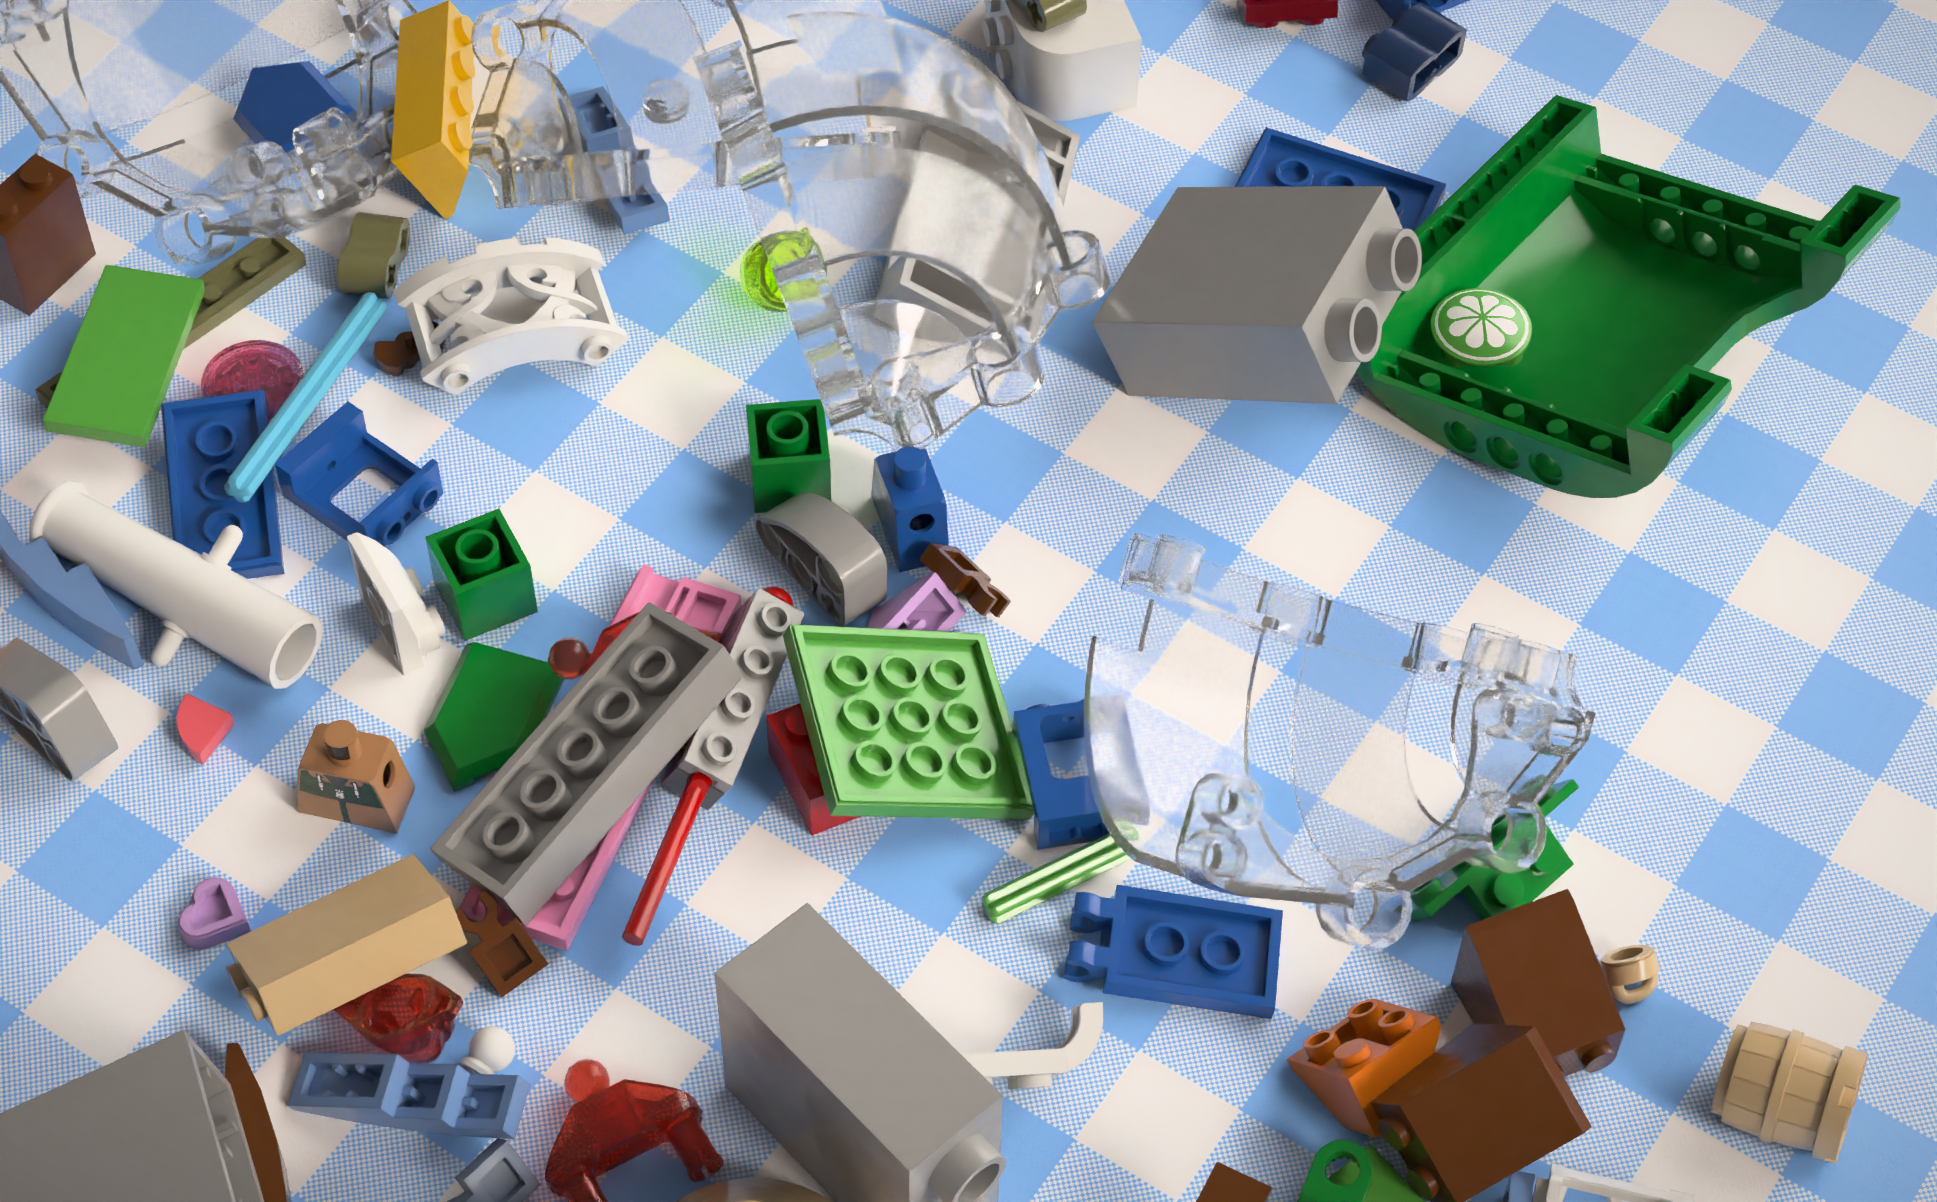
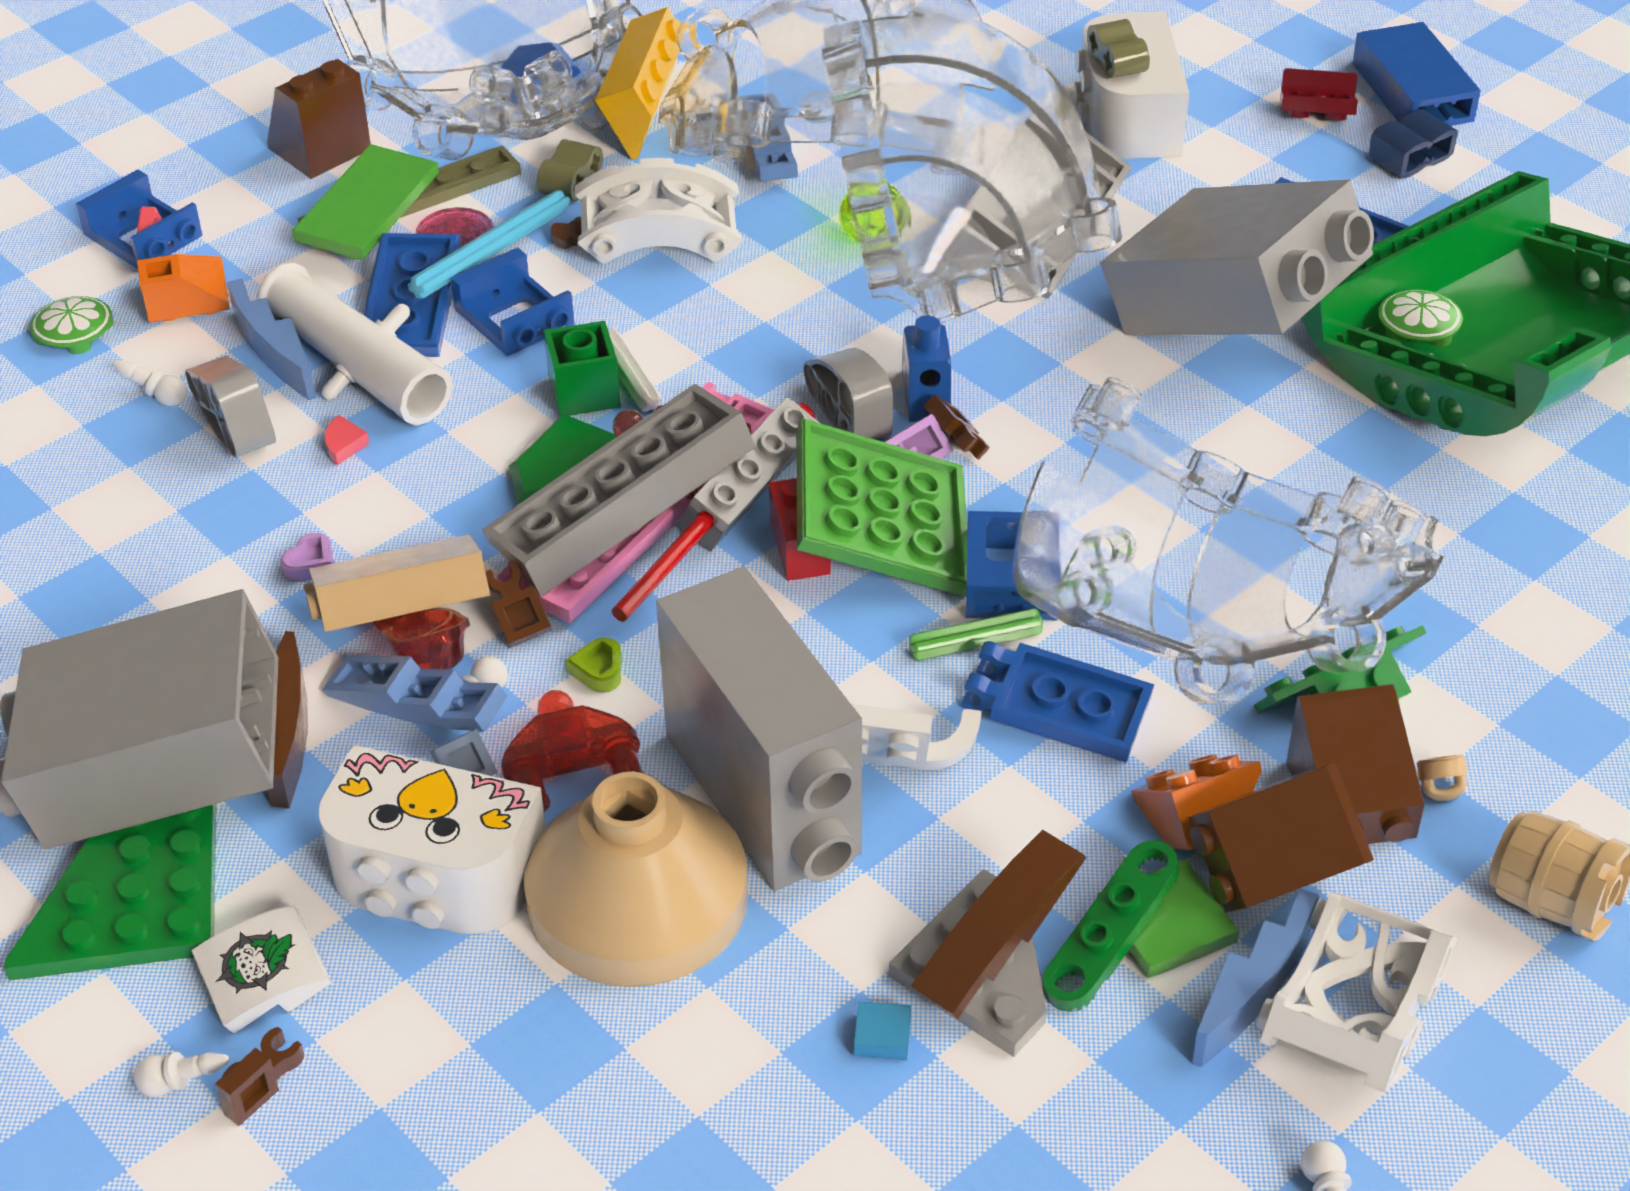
camera: 15 degrees right, 10 degrees down
(353, 778) = (441, 479): medium nougat torso -> none
(395, 603) = (511, 376): white slope -> none
(545, 567) = (633, 375): none -> white axle
(617, 1004) = (597, 665): none -> lime tile
(787, 451) = (840, 319): green head -> none

